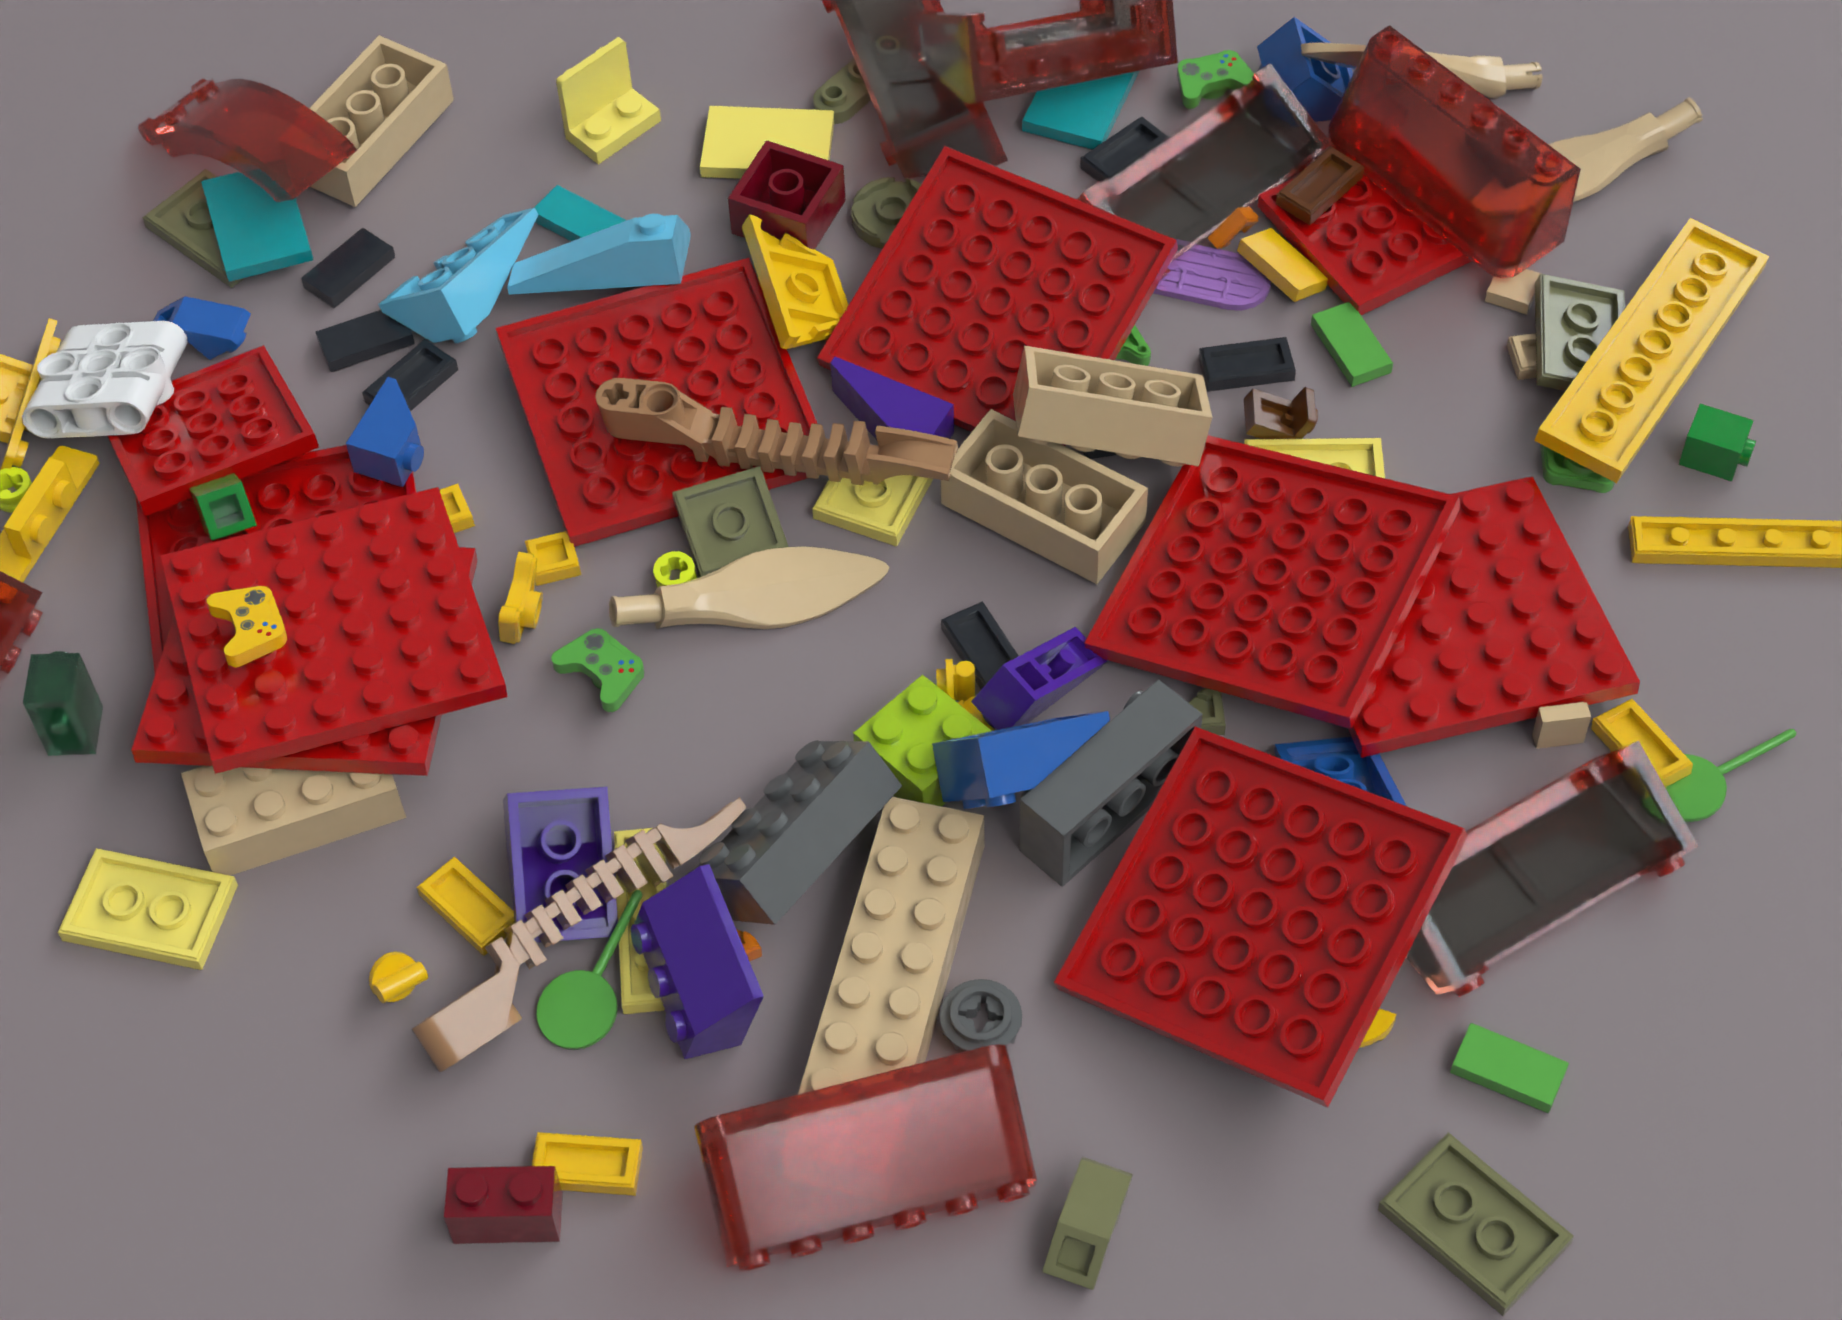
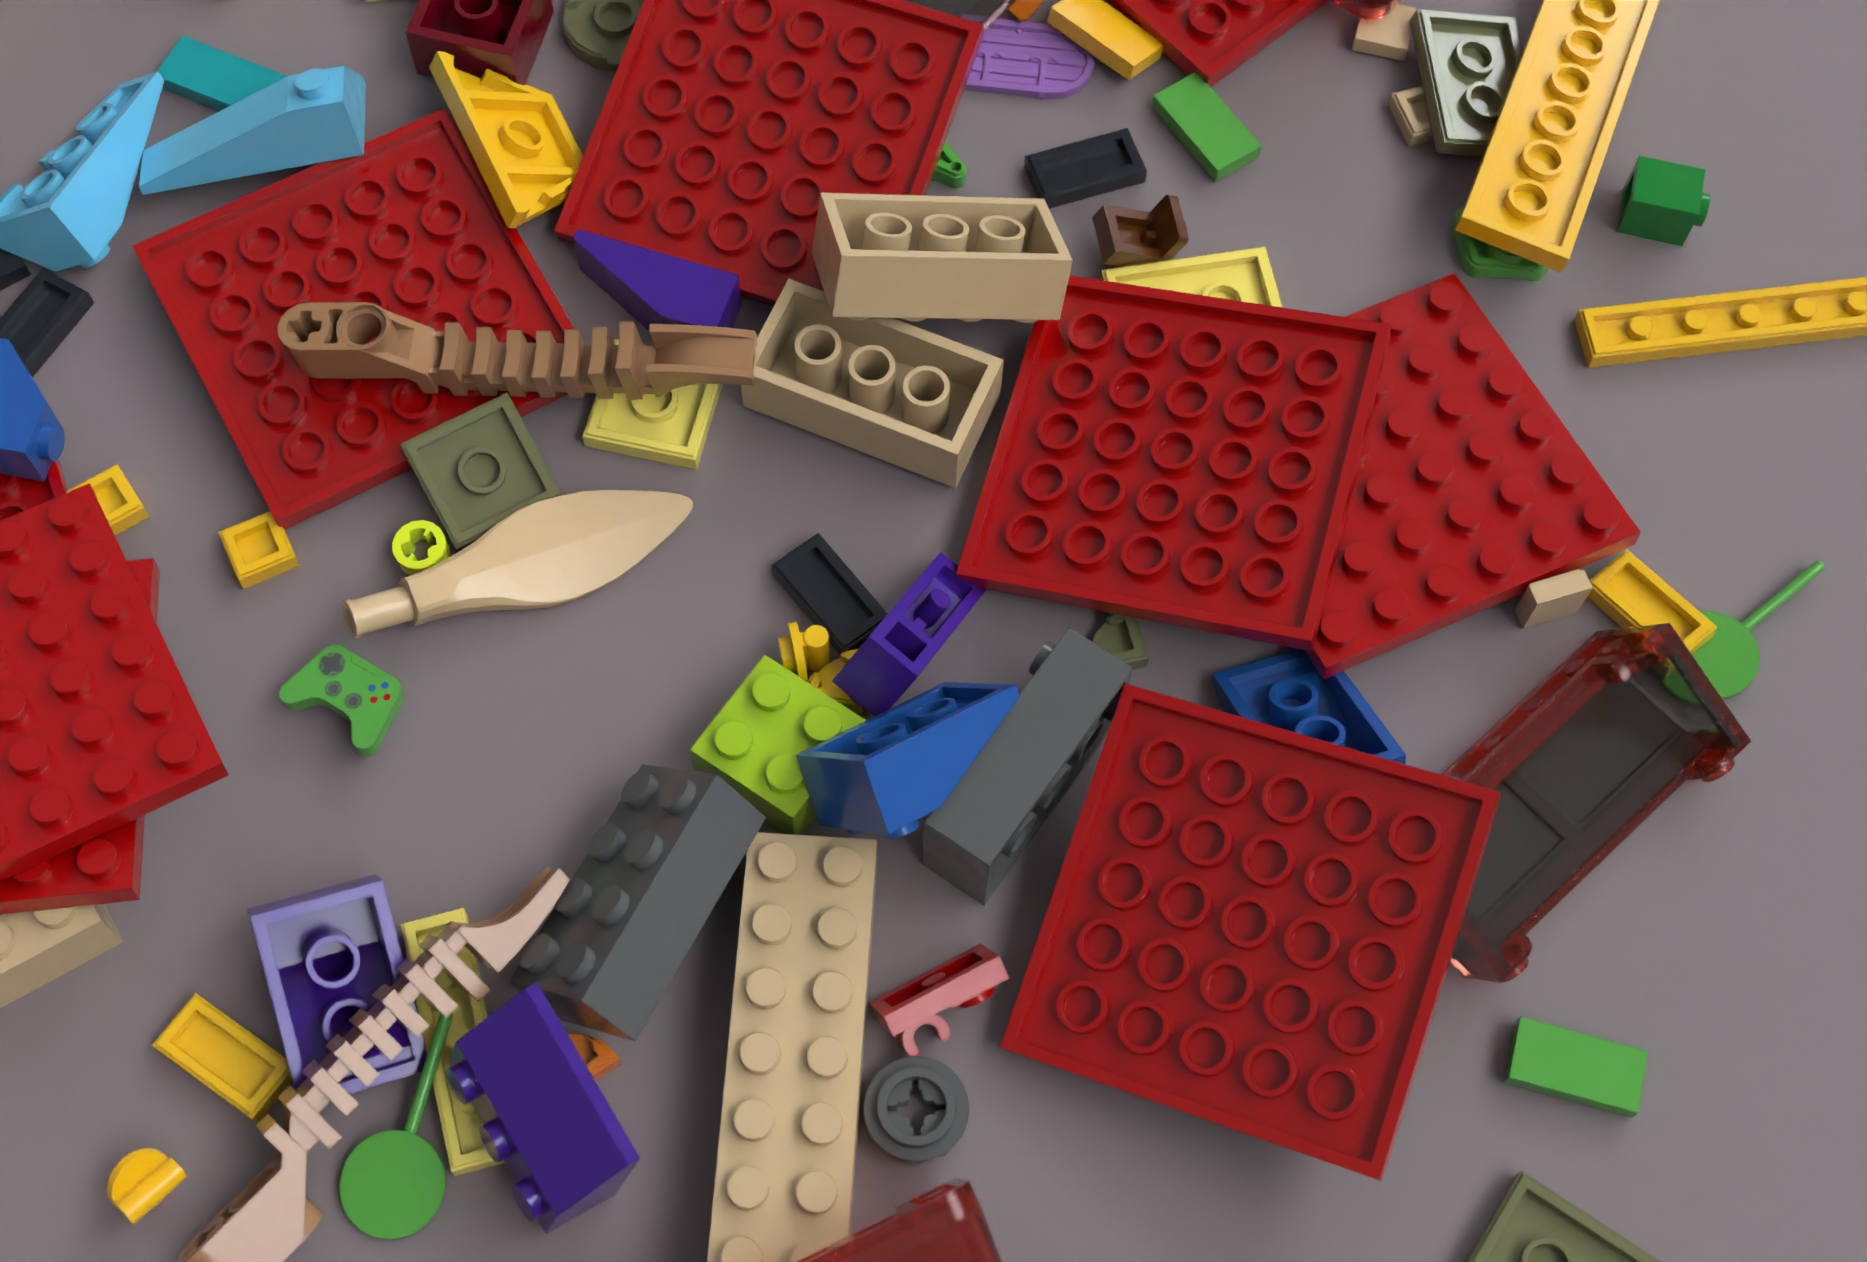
camera: 15 degrees left, 10 degrees up
(522, 603) = (229, 621): yellow piece -> none
(1034, 931) = (957, 982): none -> plate

